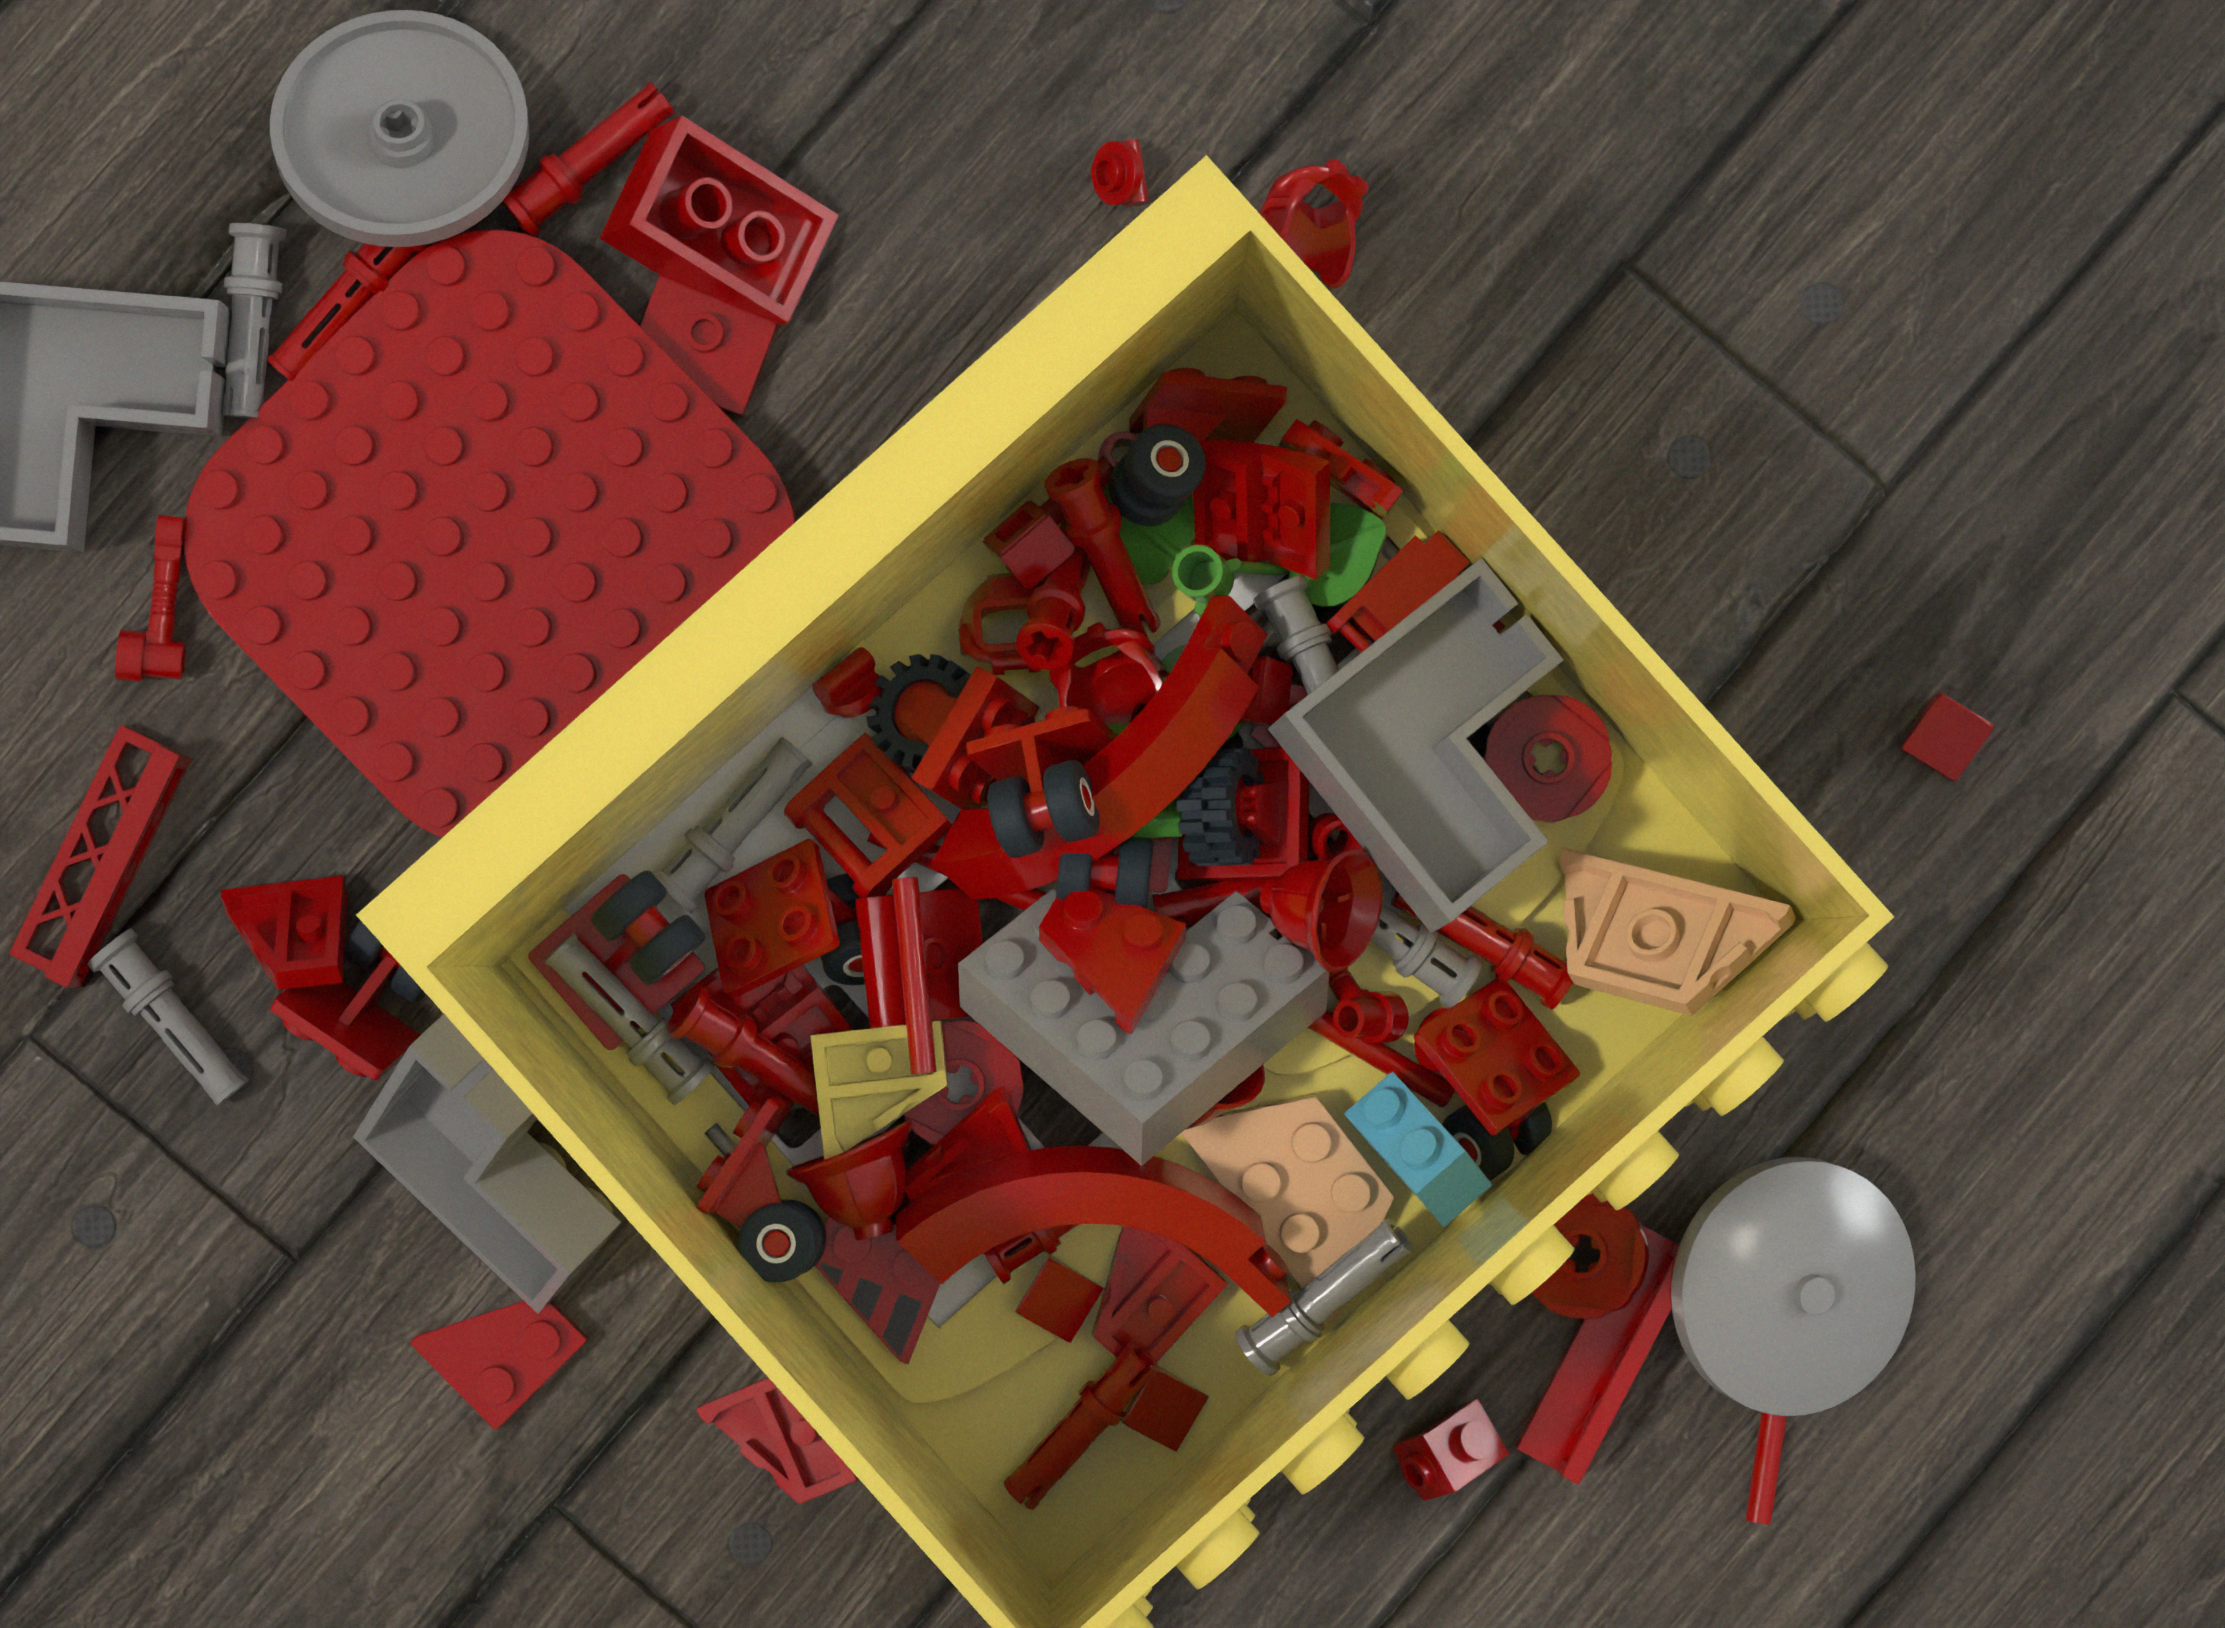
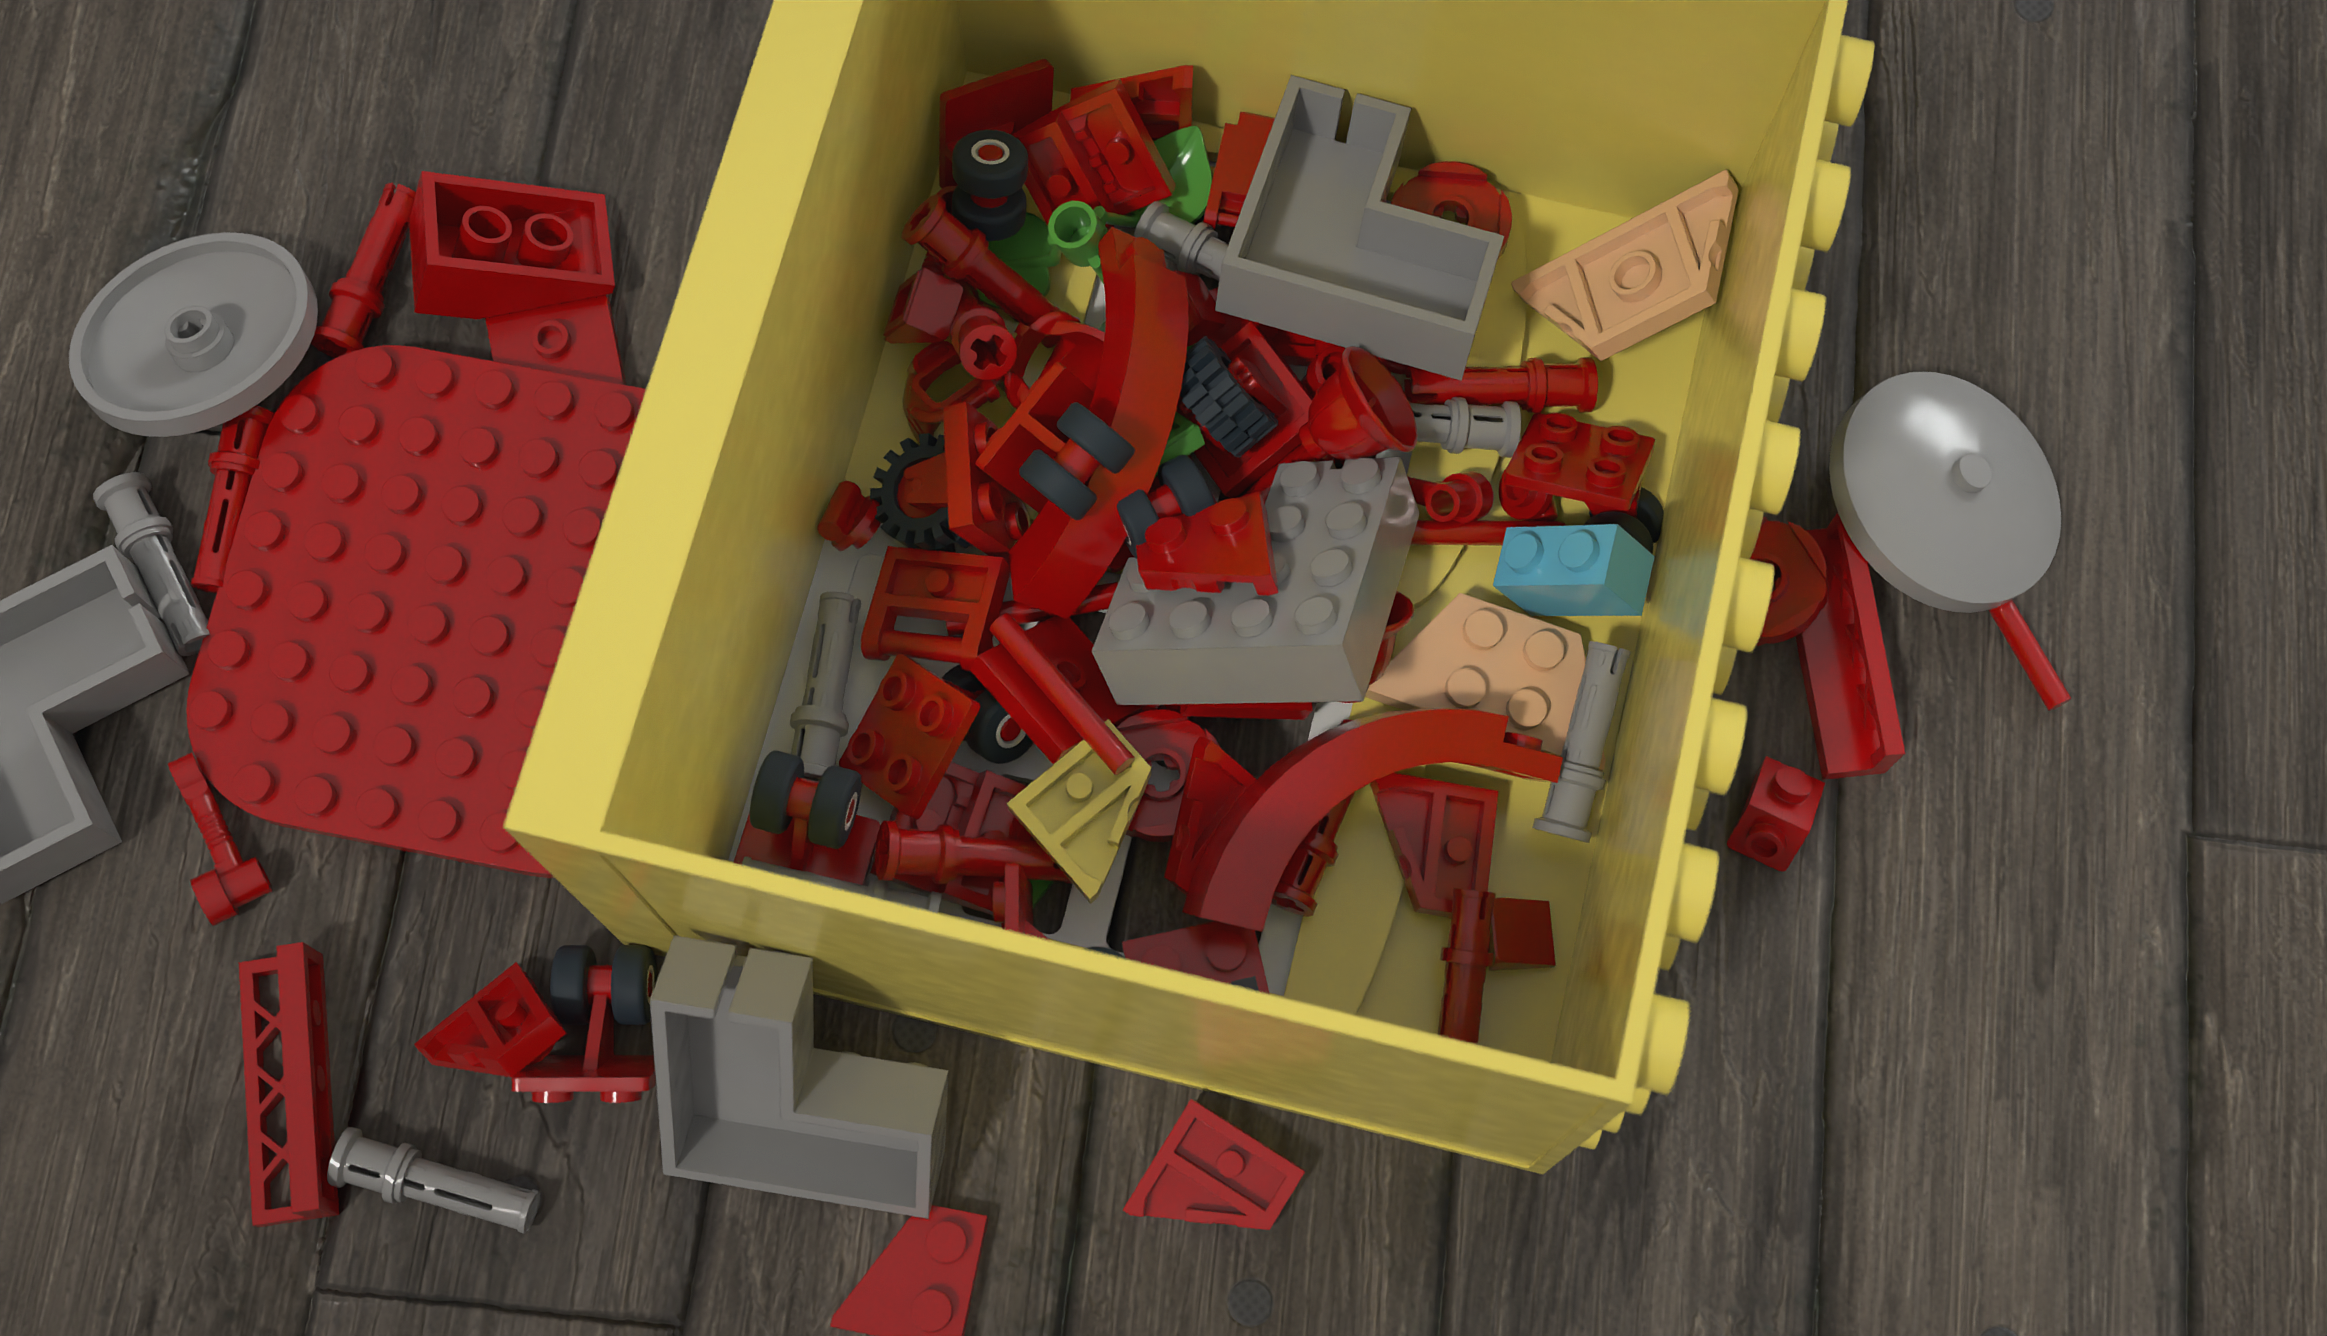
camera: 35 degrees left, 15 degrees down
(860, 1184) = (1131, 899): red hat -> none
(1059, 1299) = (1367, 897): red slope -> none

